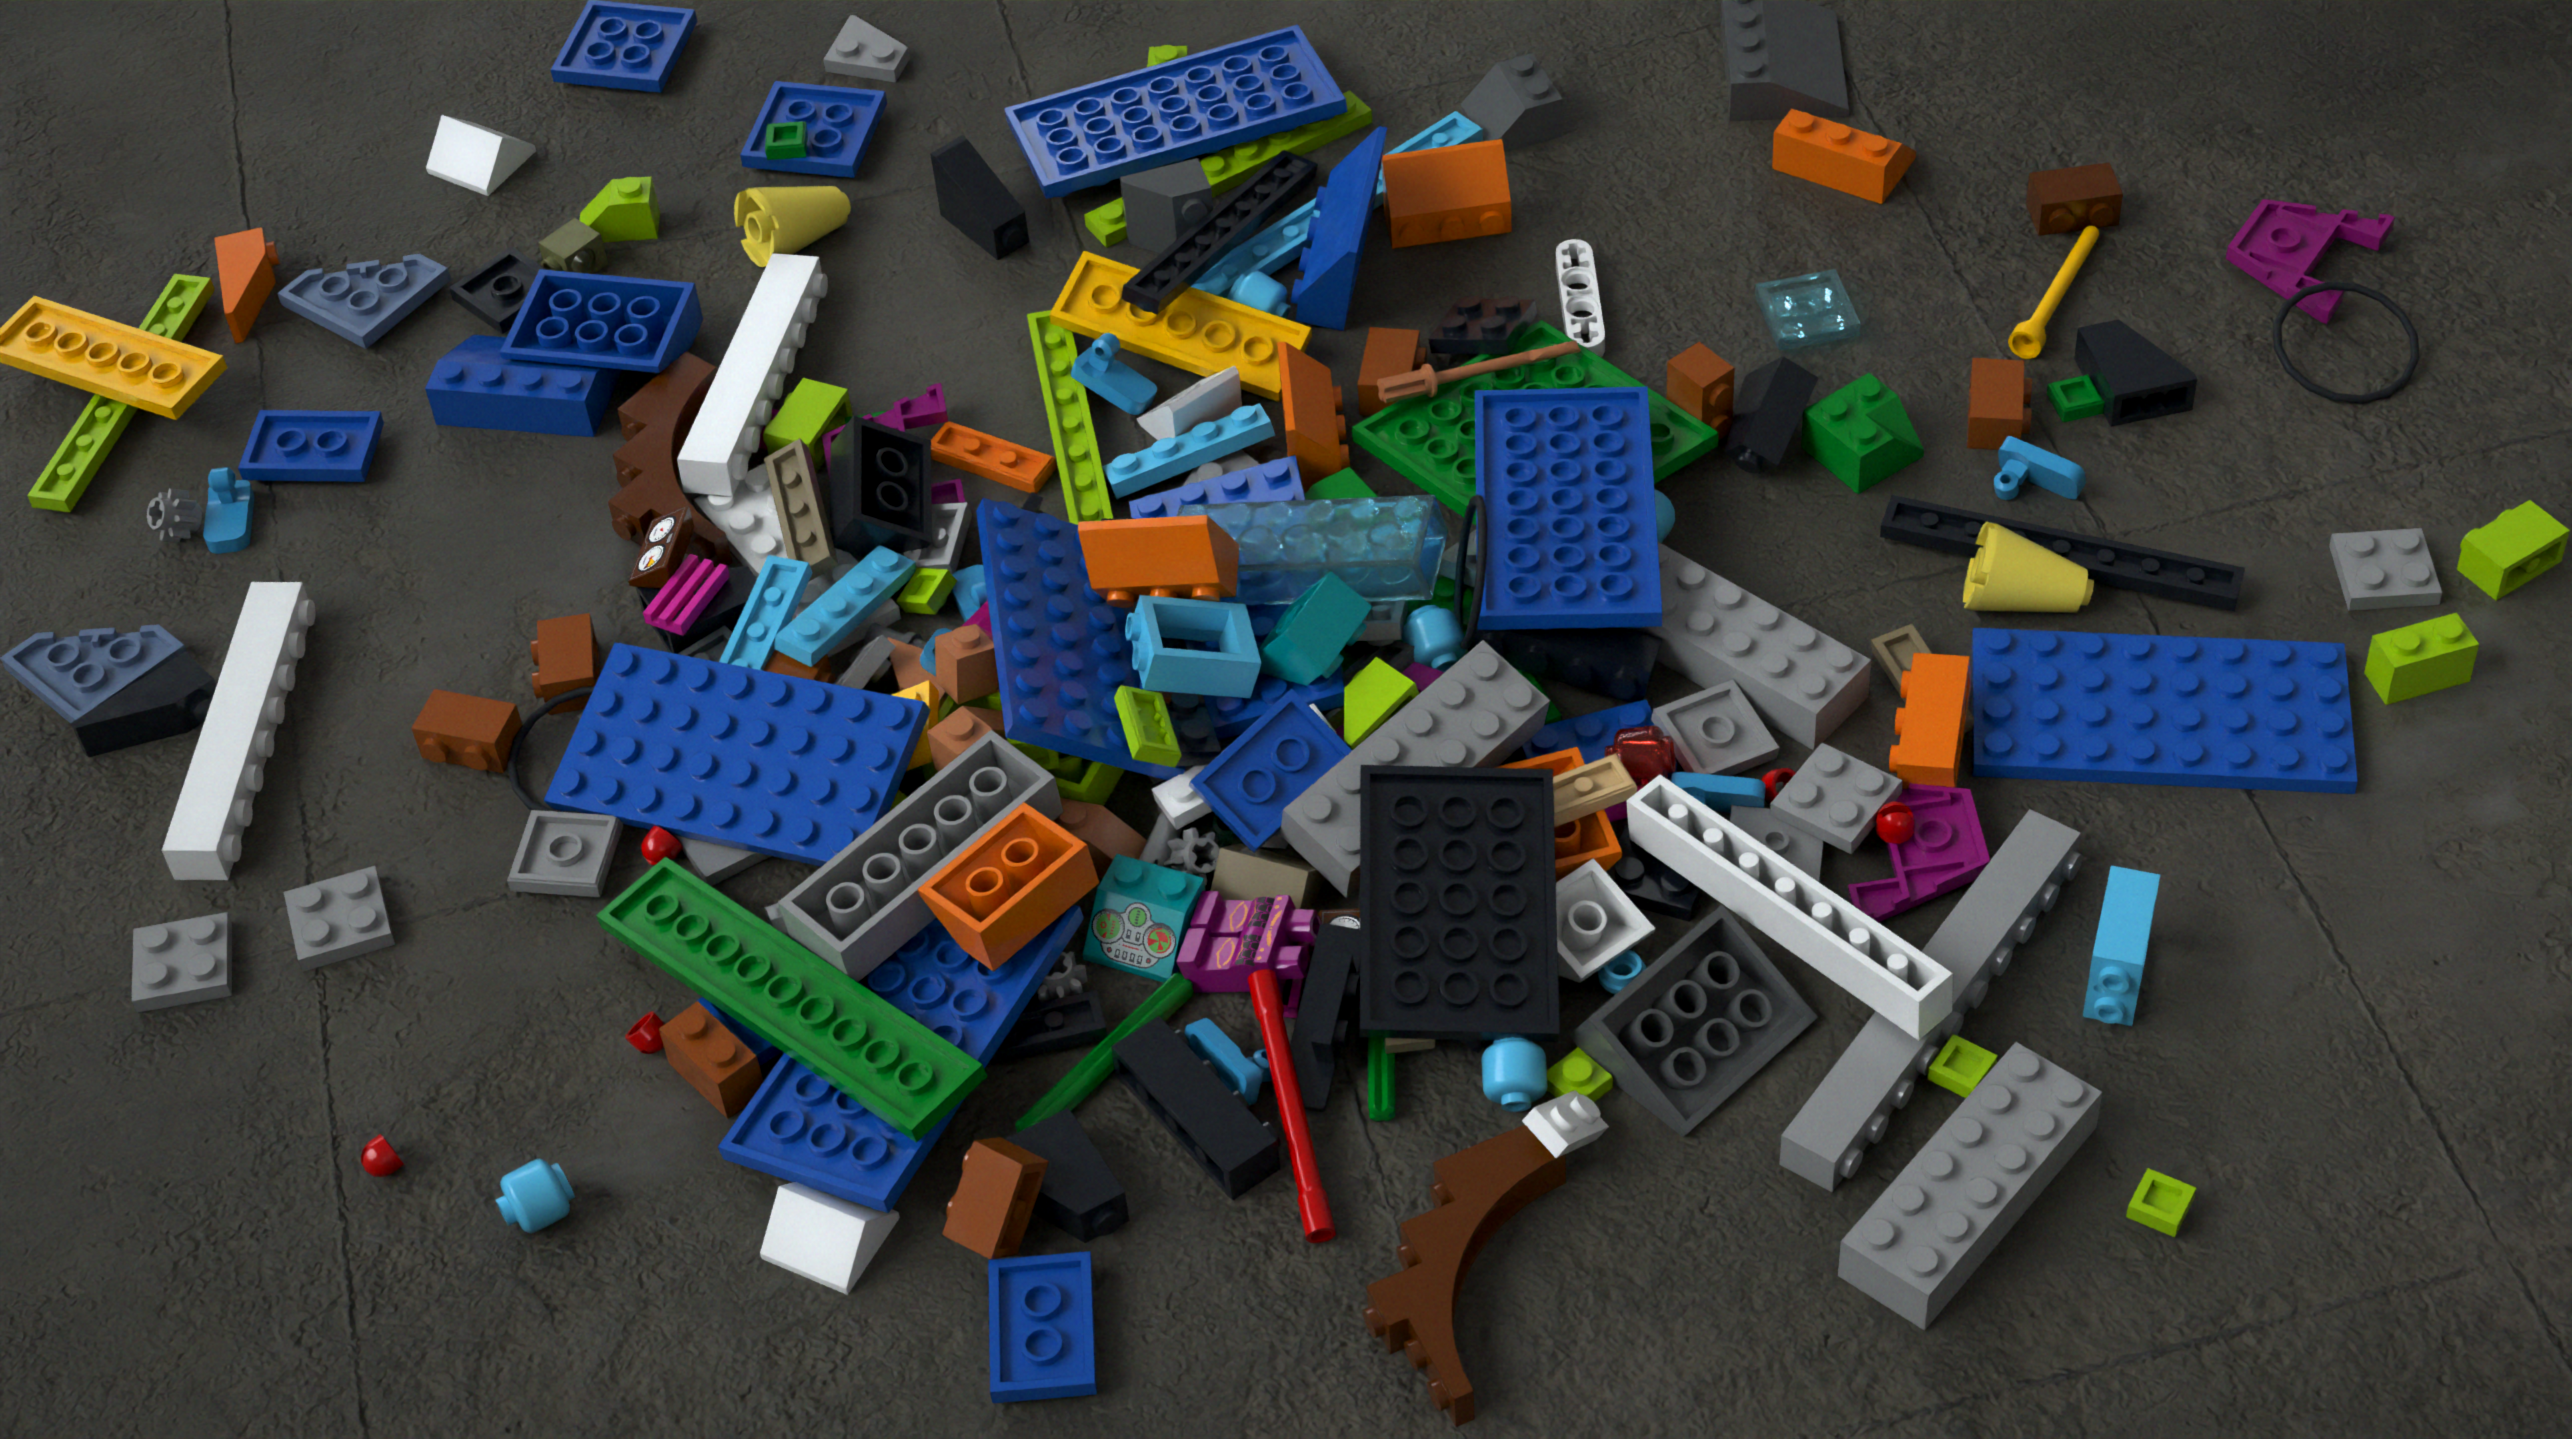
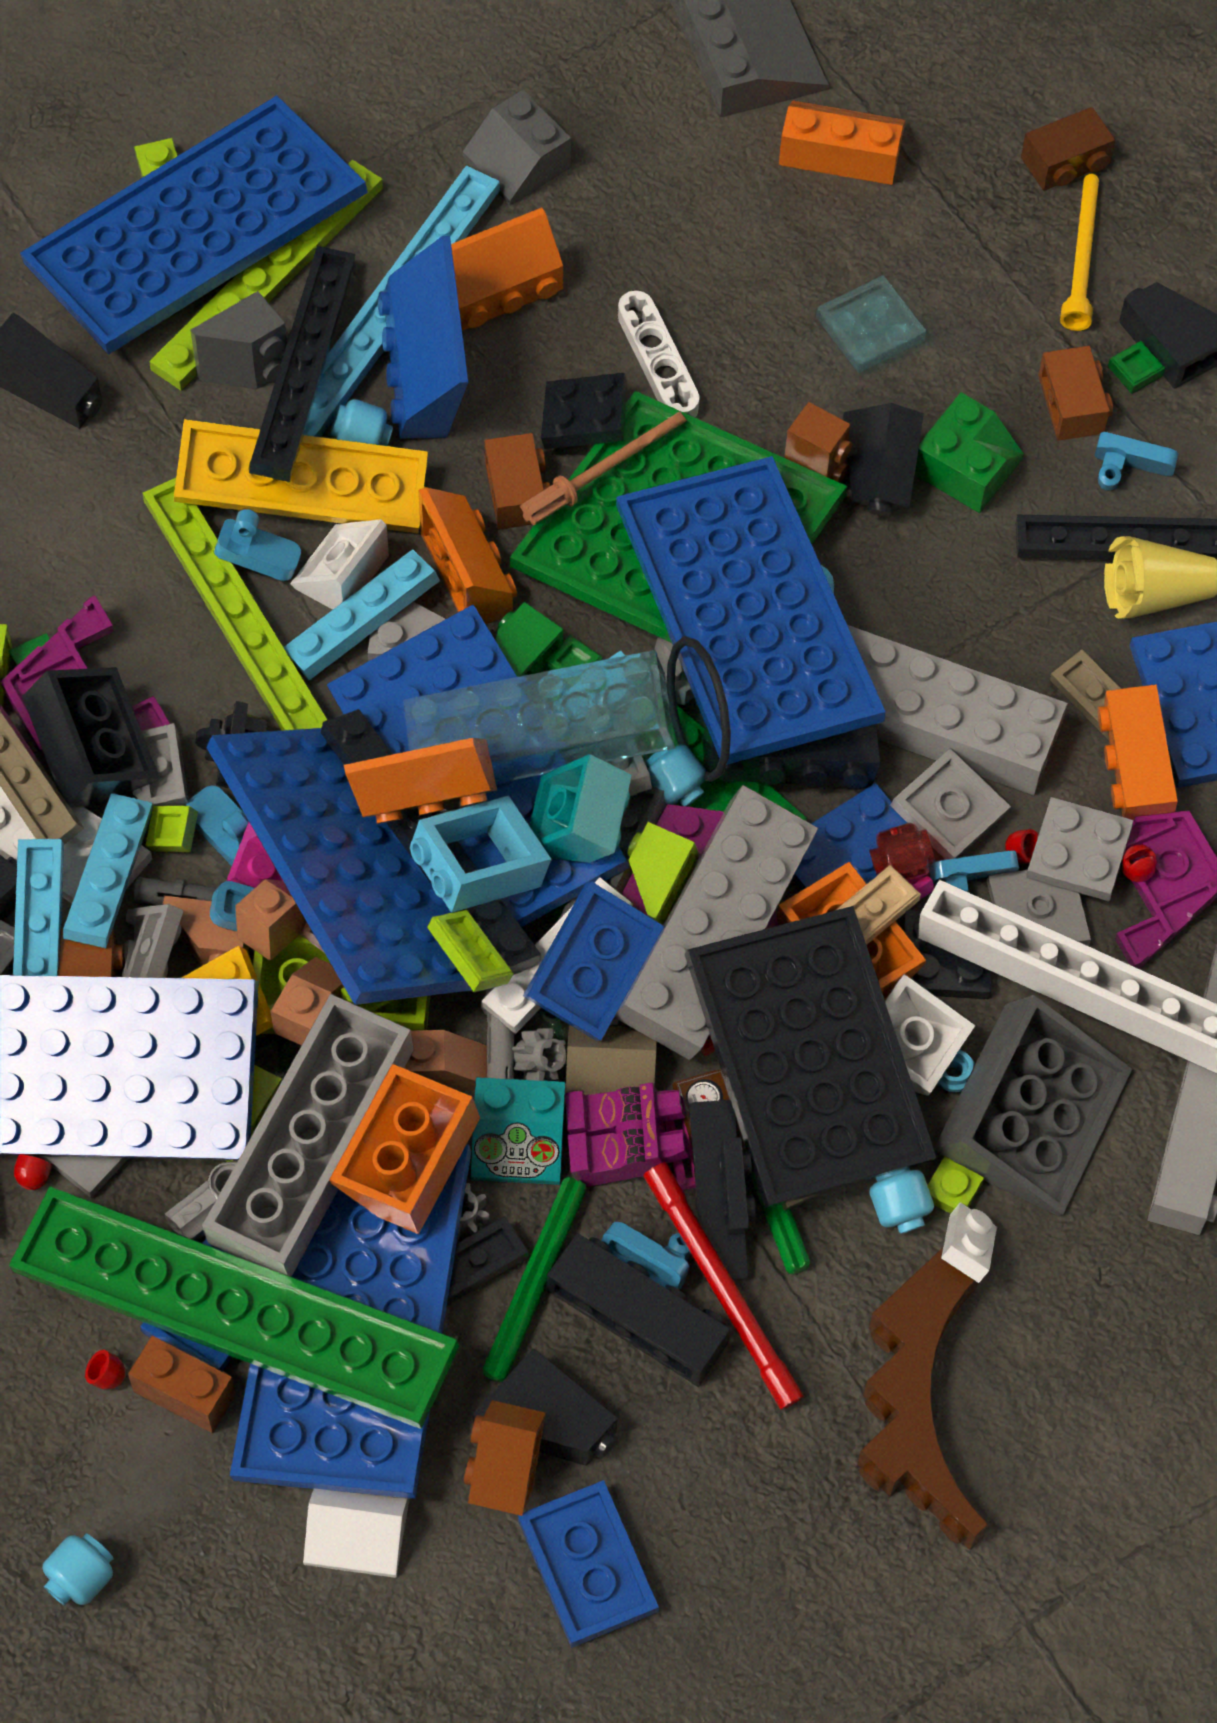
camera: 25 degrees left, 15 degrees up
(992, 457) = (169, 660): orange tile -> none

